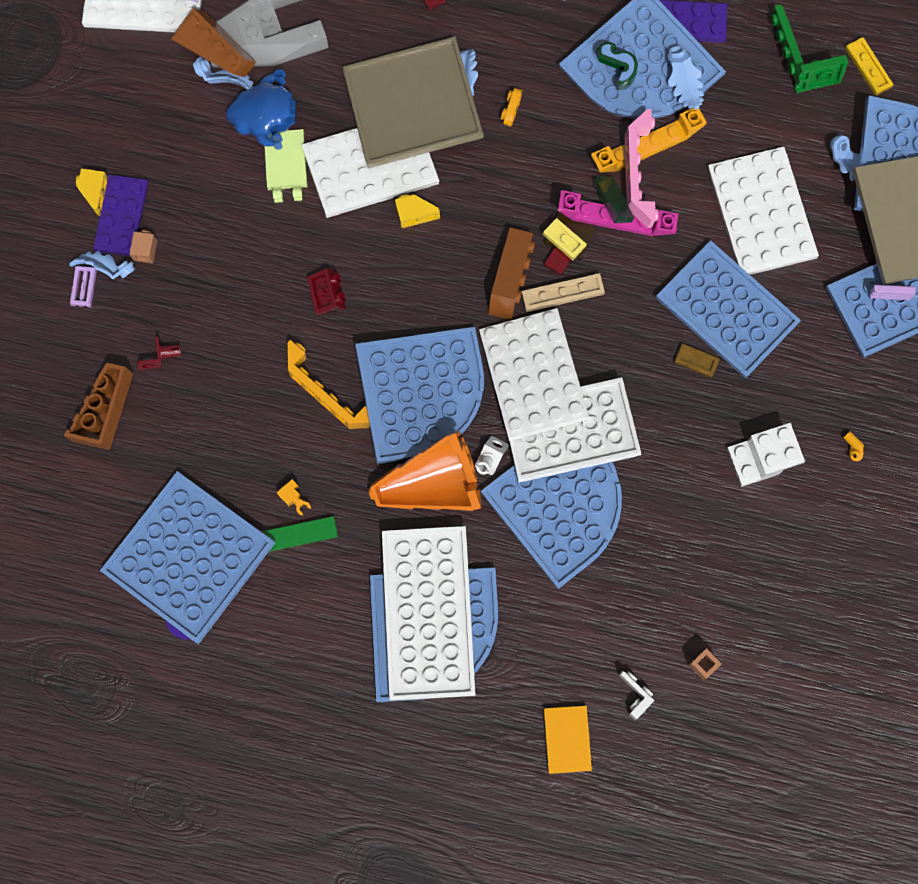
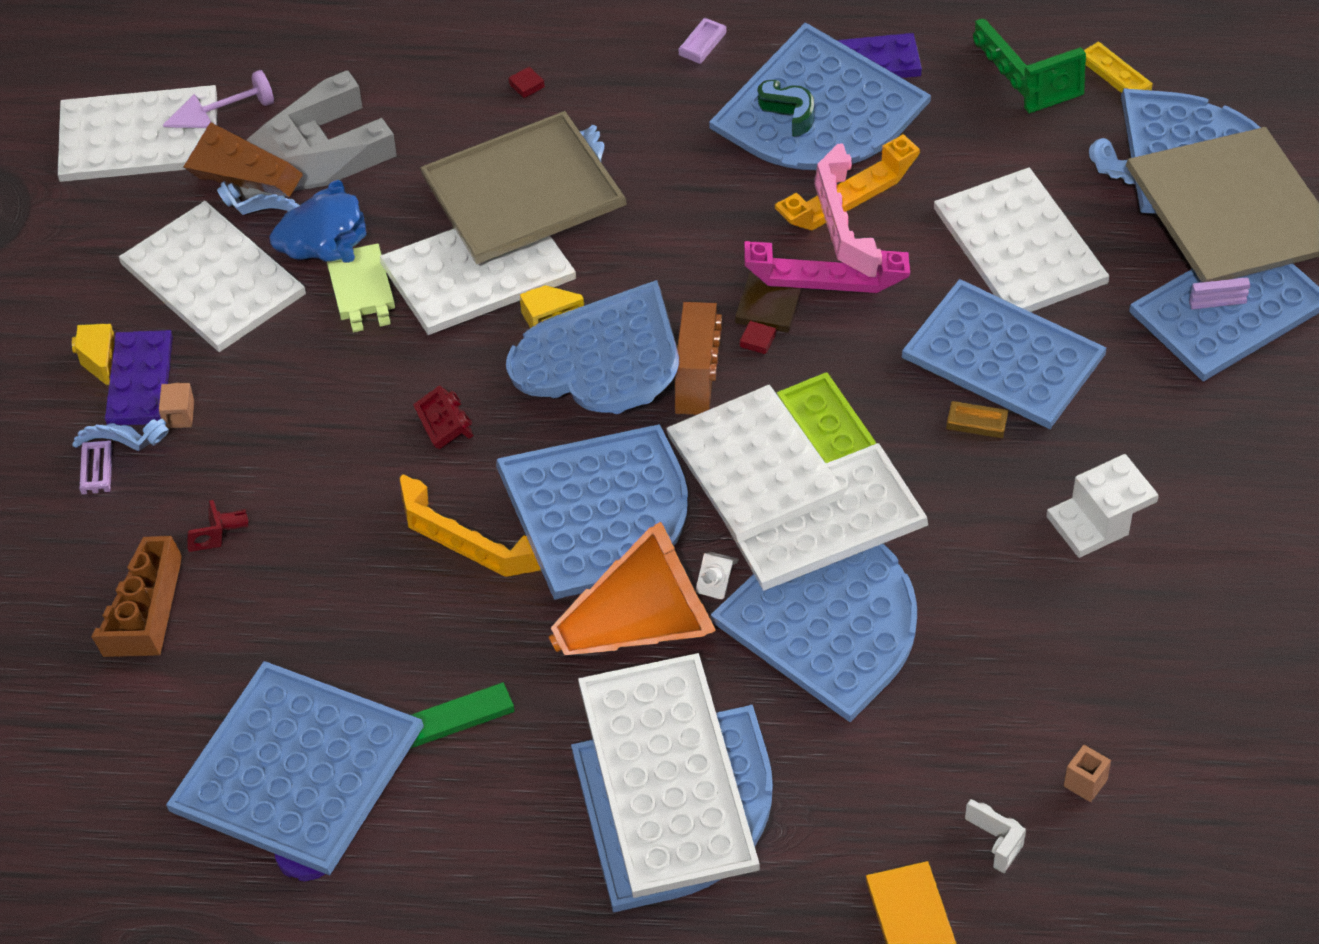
camera: 10 degrees left, 25 degrees down
(182, 134) = (212, 276): none -> white plate
(290, 496) = (434, 666): light orange piece -> none
(443, 264) = (601, 353): none -> medium blue plate
(508, 114) = (657, 169): light orange plate -> none
(563, 292) = (773, 368): tan plate -> none
(564, 239) = (761, 305): light yellow plate -> none
(591, 345) = (826, 417): none -> lime plate
(613, 200) = (817, 252): clear green tile -> none
(685, 77) = (878, 107): light blue plant -> none
(856, 446) = (1225, 482): light orange arm -> none

